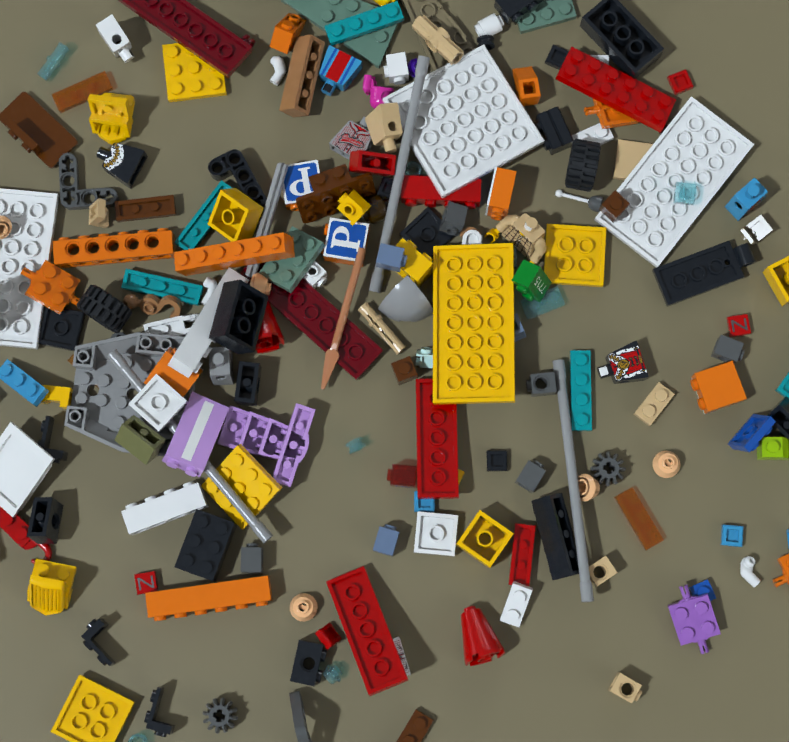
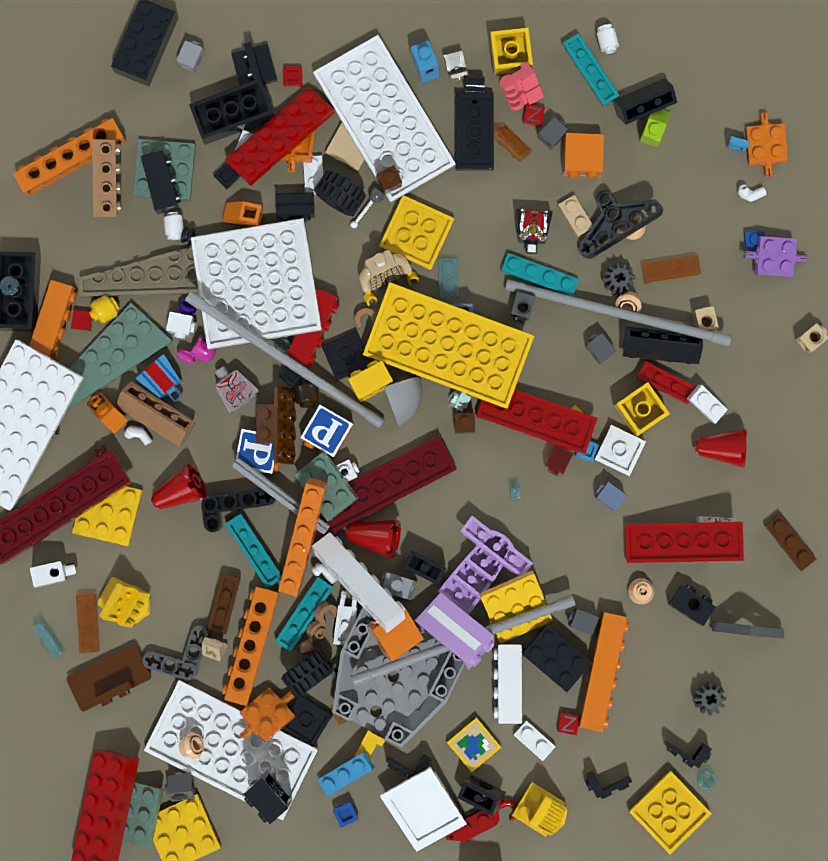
camera: 75 degrees left, 5 degrees up
(93, 497) = (473, 744): none -> tile
(118, 555) = (534, 740): none -> white plate
(123, 162) = (172, 609): black torso -> none
(140, 439) = (444, 682): olive brick -> none
(157, 403) = (417, 654): white plate -> none
(235, 215) = (266, 522): yellow brick -> none
(238, 317) = (366, 552): black brick -> none
(240, 126) = (180, 489): none -> red cone
(261, 283) = (341, 525): light nougat cone -> none
(328, 635) = (675, 578): red tile -> none
(332, 354) = (426, 482): nougat piece -> none
(332, 674) = (709, 586): clear light blue plate -> none
(353, 206) = (300, 412): yellow brick -> none
(364, 23) = (126, 338): teal plate -> none
(372, 162) = (266, 380): red brick -> none
(381, 327) = (417, 429): tan pin -> none
(385, 126) = (236, 355): tan torso -> none
(391, 257) = (364, 395): sand blue brick -> none
(438, 39) = (171, 277): tan piece -> none
(453, 218) = (343, 327): dark grey brick -> none
(471, 237) = (368, 317): white tile -> none
(496, 460) = (574, 373): black tile -> none
(500, 193) = (337, 276): orange piece -> none
(531, 281) = (430, 280): green brick -> none
(655, 437) = (624, 216): none -> black beam
(677, 42) = (254, 64): none -> black bracket
(684, 193) = (400, 113): clear light blue plate -> none
(701, 314) = (512, 143): none -> clear orange plate
(732, 535) = (715, 195): dark azure tile -> none
(751, 433) = (635, 142): blue plate -> none
(759, 299) = (521, 87): none -> coral legs

